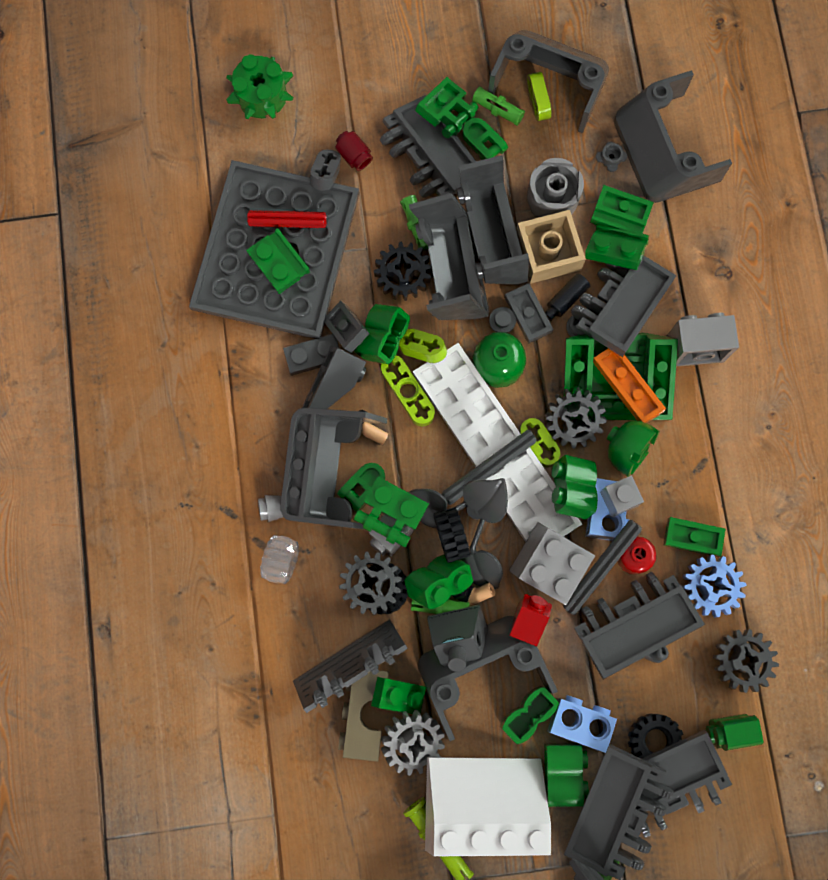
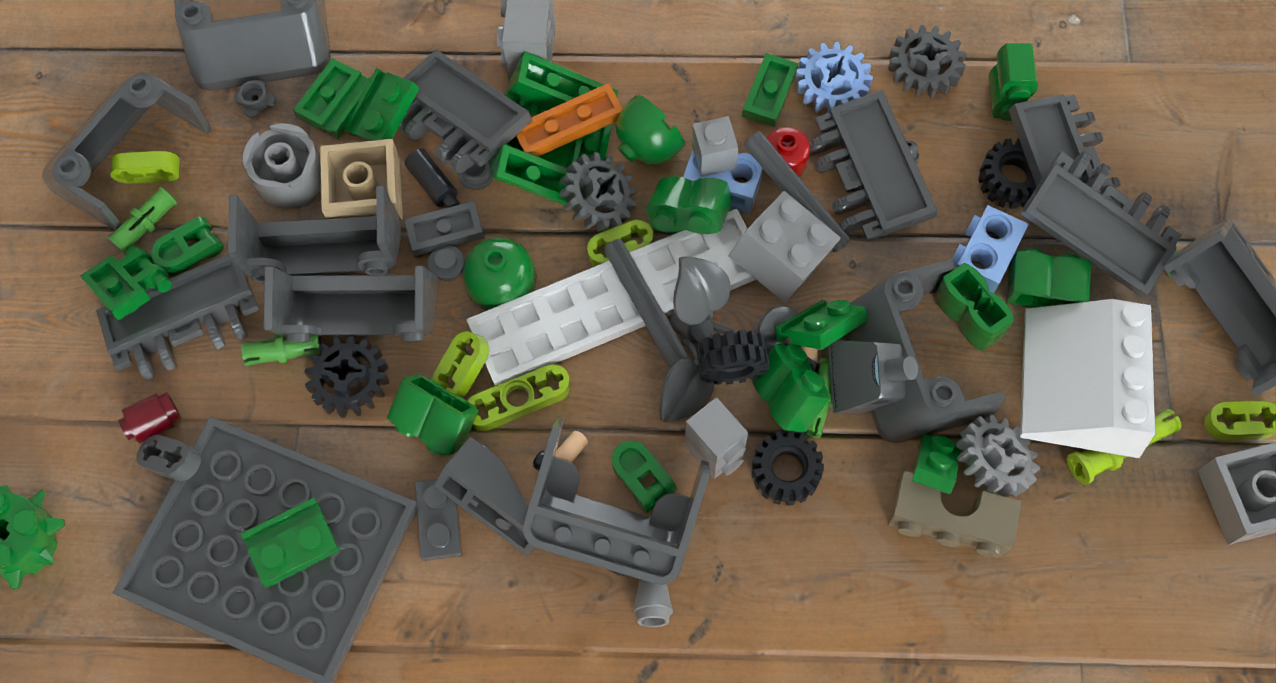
camera: 80 degrees left, 10 degrees down
(279, 559) = (731, 598): clear gear -> none
(286, 219) = (229, 521): red axle -> none
(346, 327) = (411, 459): dark grey plate -> none
(349, 666) = (891, 521): dark grey hinge -> none
(358, 589) = (797, 464): dark grey gear -> none
(395, 503) = (685, 412): green plate -> none
(491, 598) = (822, 324): none -> green plate
(530, 619) = (855, 277): red slope -> none

